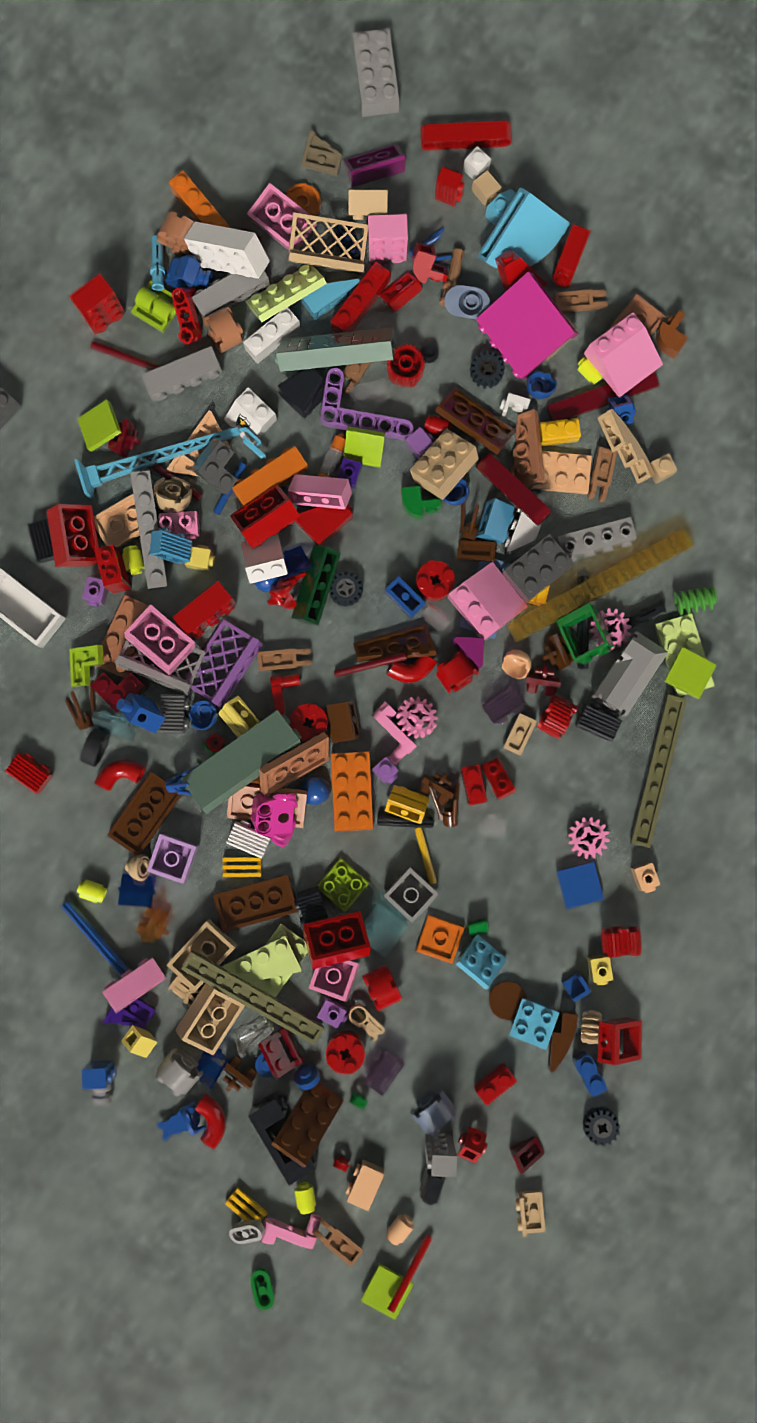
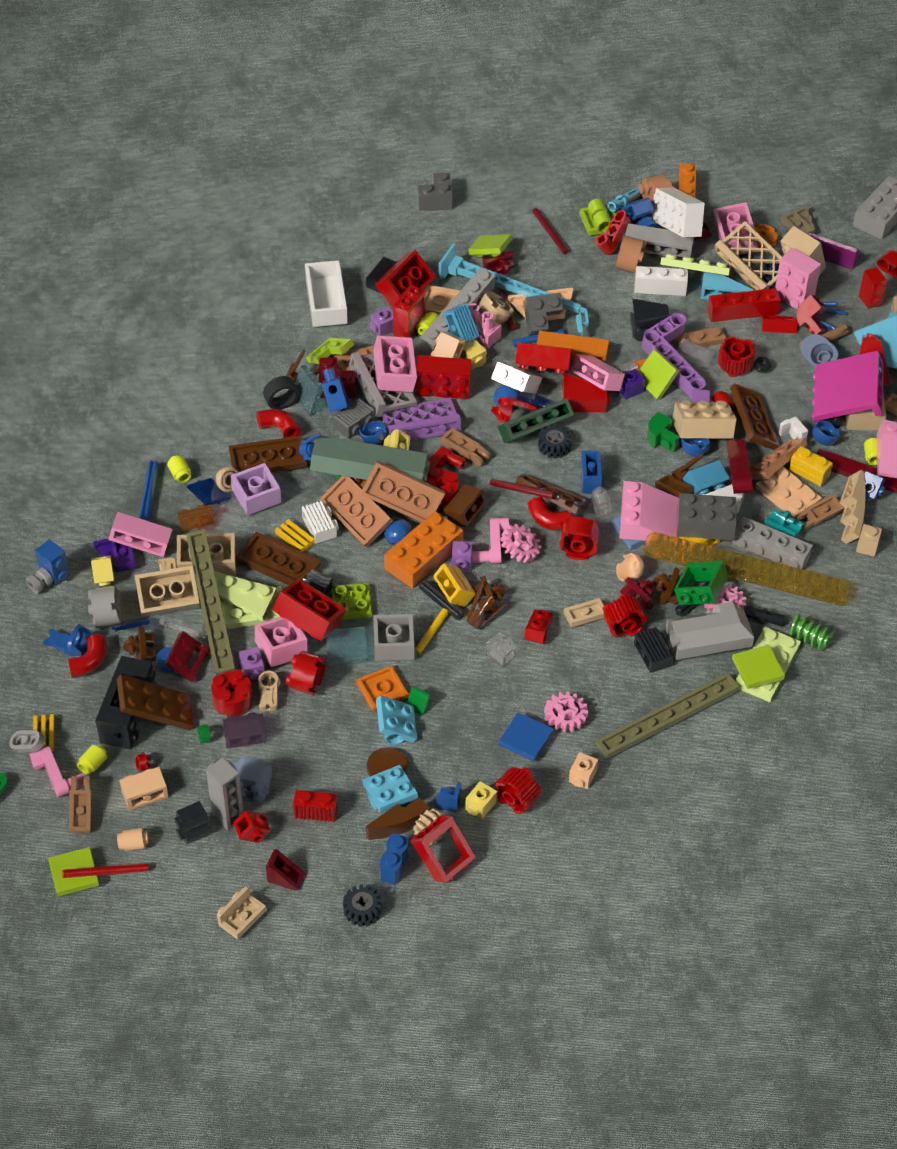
camera: 45 degrees right, 35 degrees down
(29, 772) = (222, 377): red brick -> none
(97, 304) = (561, 184): red brick -> none
(182, 374) = (576, 257): light grey brick -> none
(182, 581) = (448, 345): none -> light nougat brick
(251, 413) = (599, 309): white slope -> none
(277, 830) = (346, 527): dark pink piece -> none
(307, 1077) = (186, 685): blue wheel -> none
(336, 349) = (696, 308): sand green brick -> none
(432, 570) = (621, 471): red brick -> none
(472, 648) = (608, 531): magenta slope -> none
(473, 784) = (516, 612): red brick -> none
(485, 363) = (795, 400): black wheel -> none
(504, 704) = (592, 585): clear purple brick -> none
(589, 512) = (784, 523): none -> teal hips

